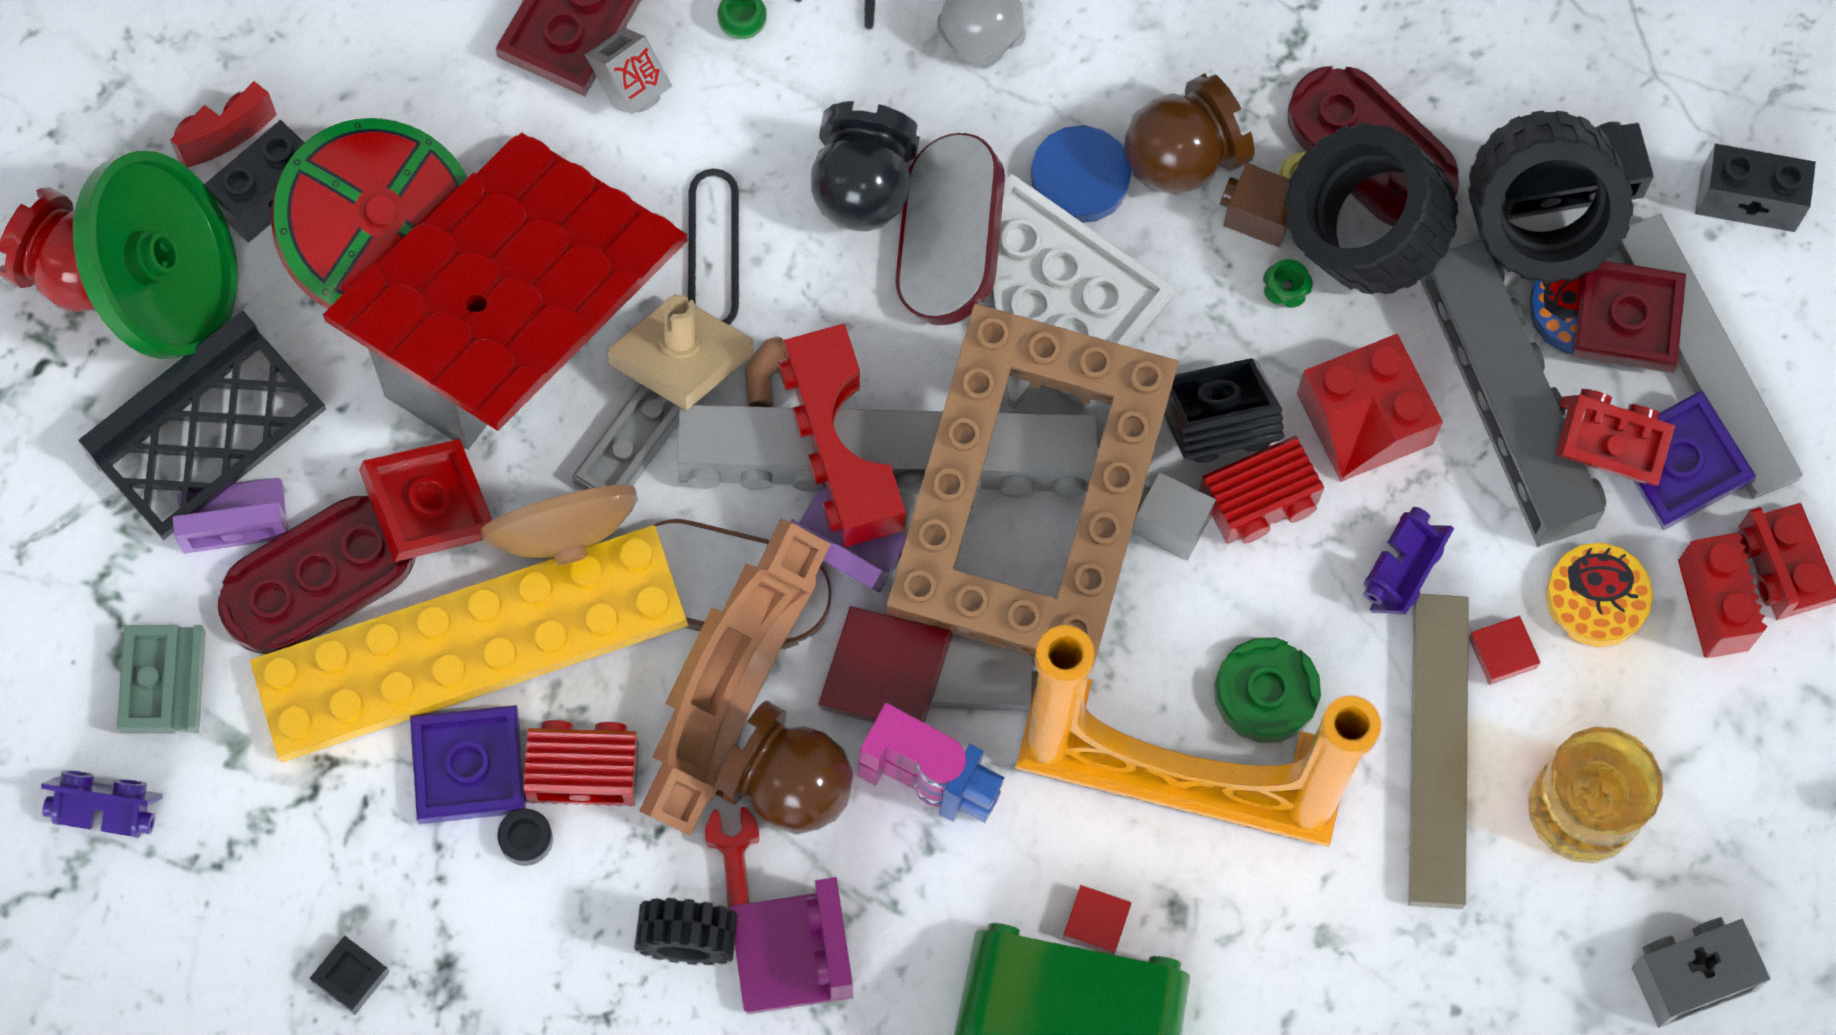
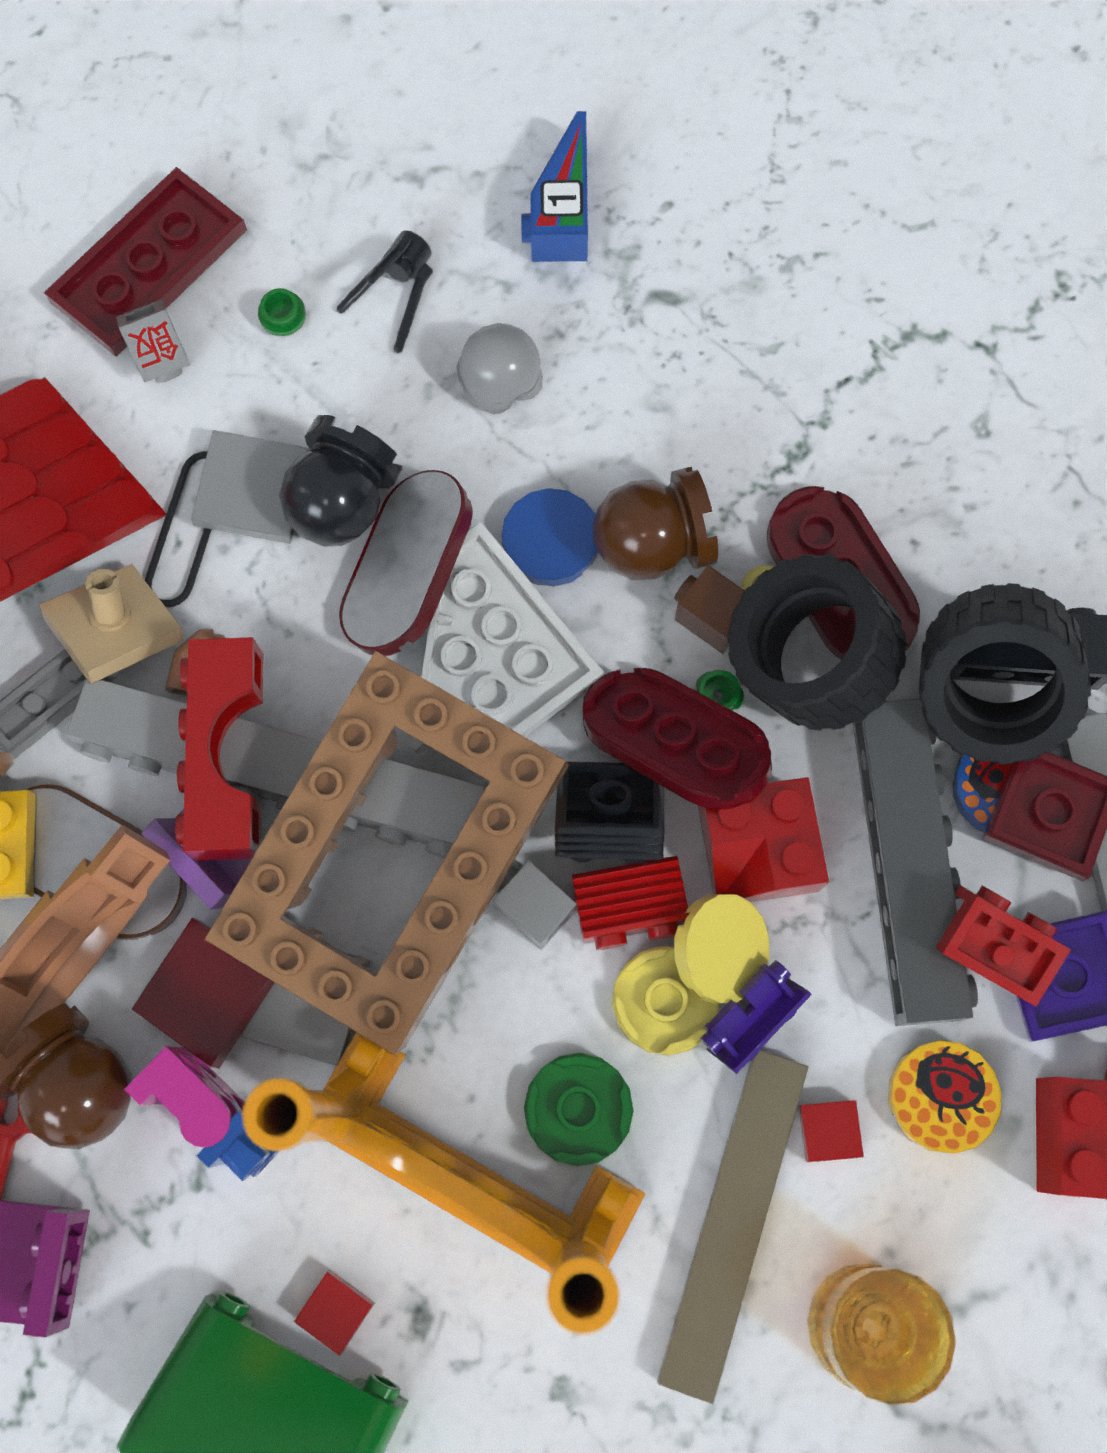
camera: 20 degrees right, 5 degrees up
(767, 193) = (243, 486): none -> light grey tile
(1262, 328) = (677, 737): none -> dark red tile
(1318, 574) = (657, 1007): none -> light yellow tile
(1359, 506) = (720, 946): none -> light yellow tile

